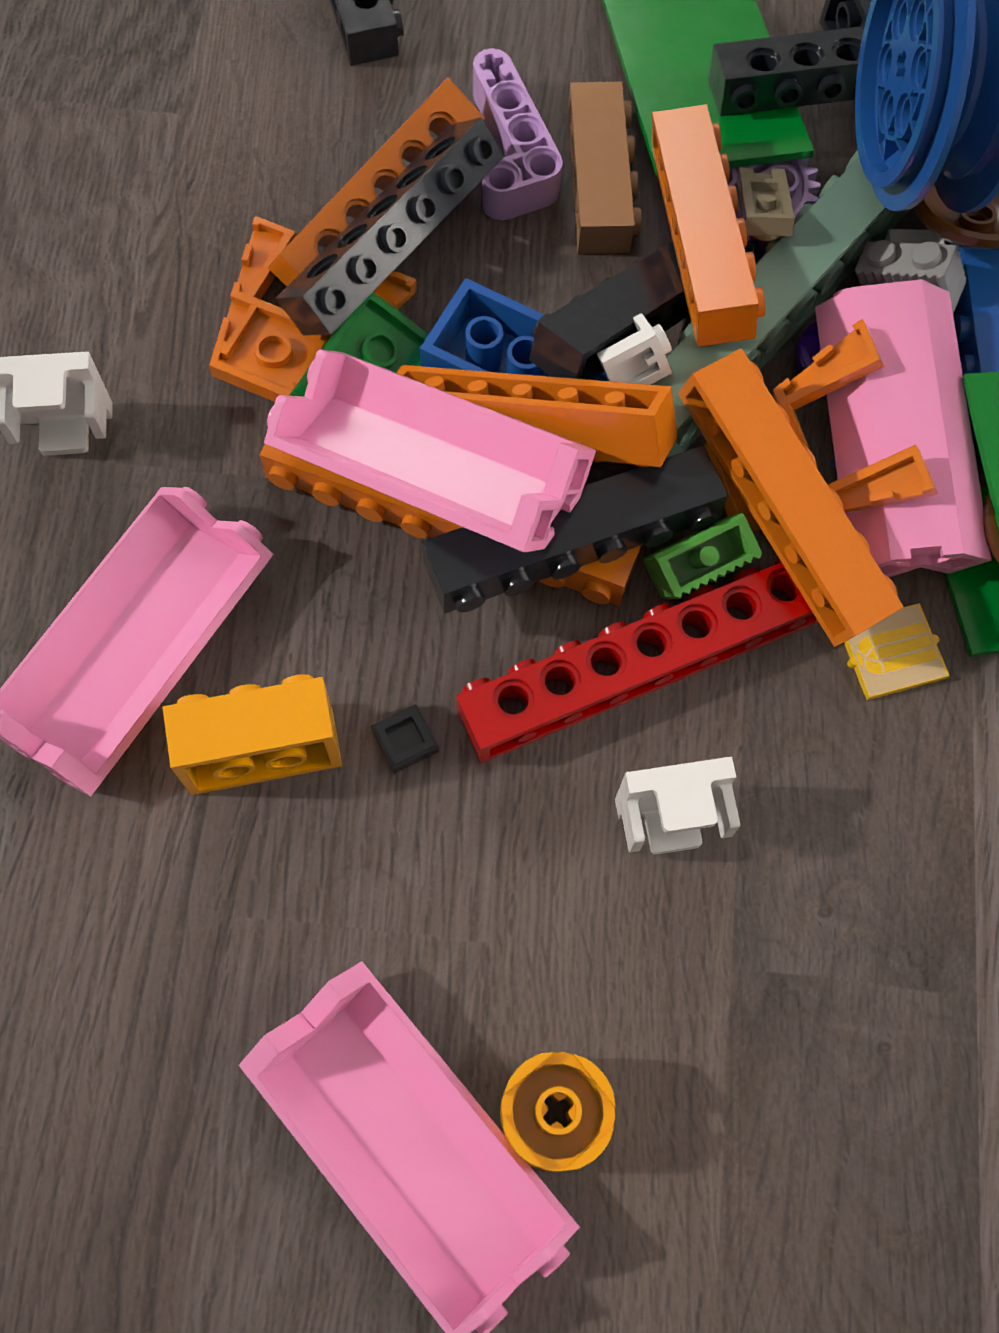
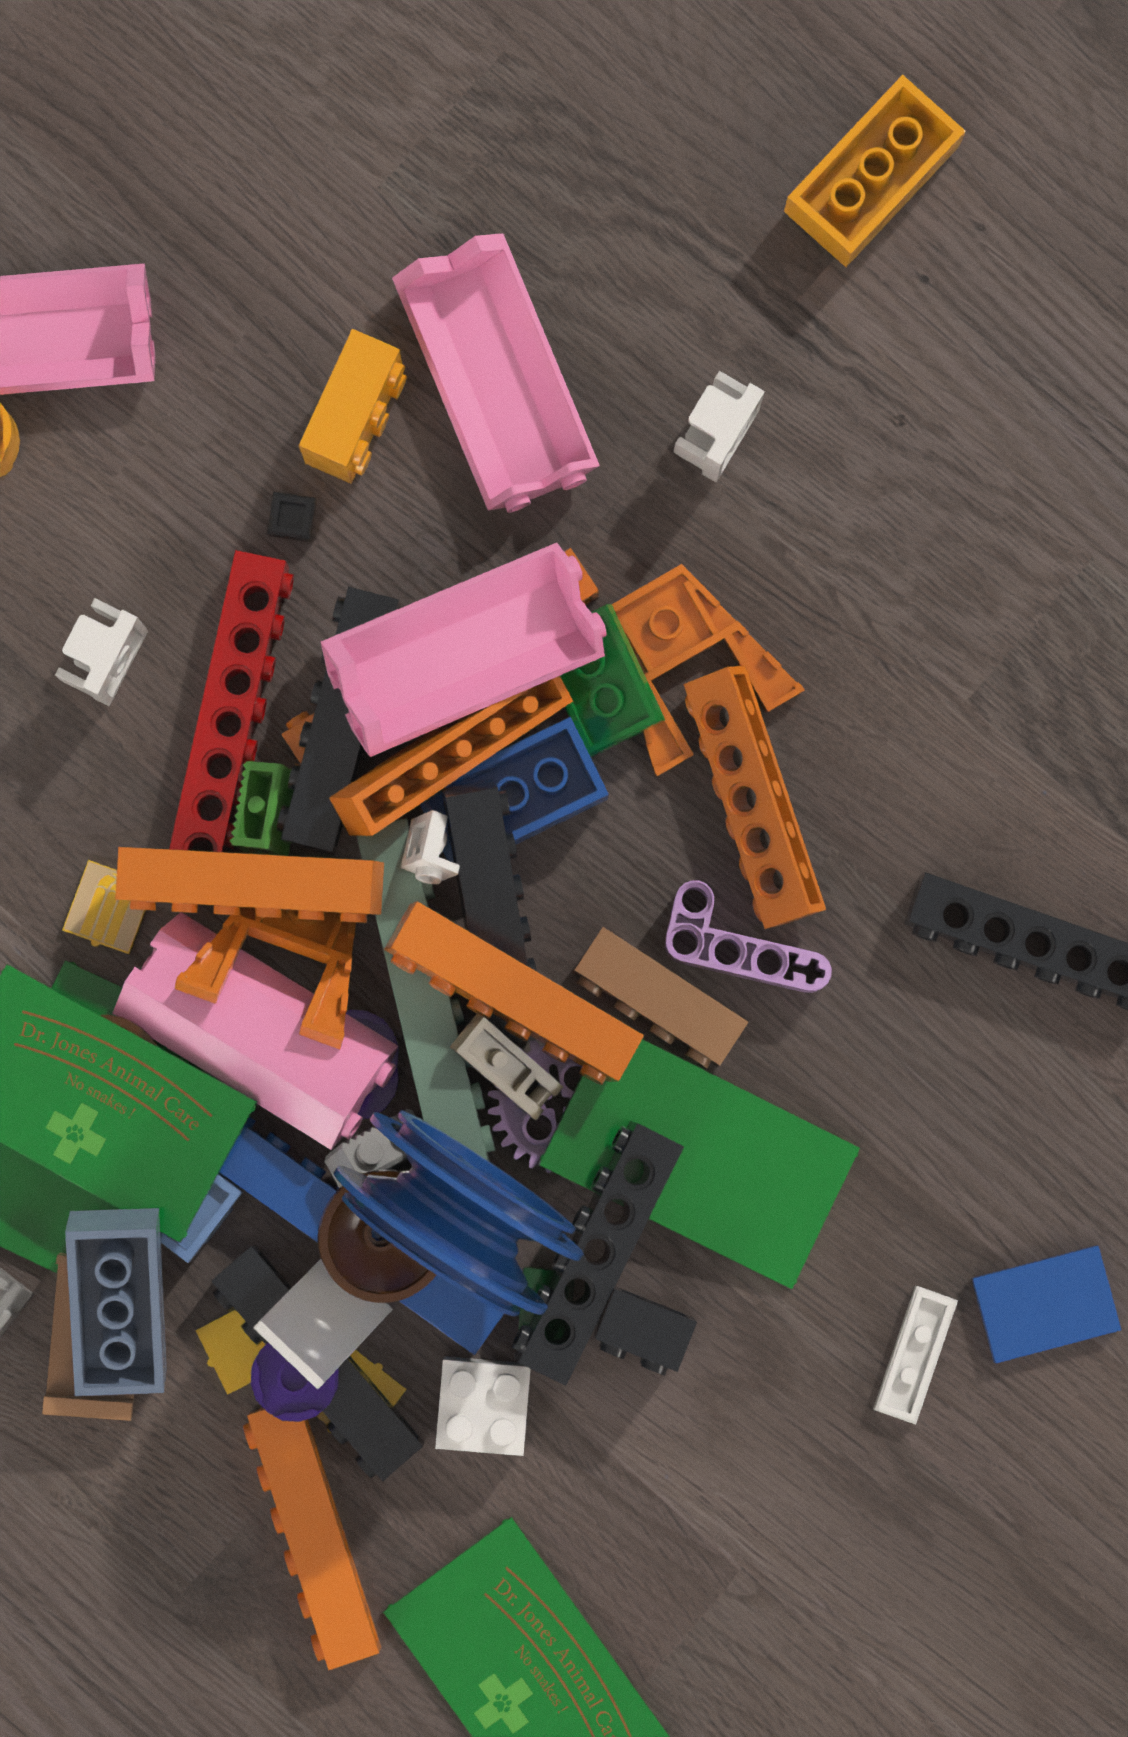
camera: 125 degrees right, 15 degrees up
(390, 228) = (696, 772): black brick -> none

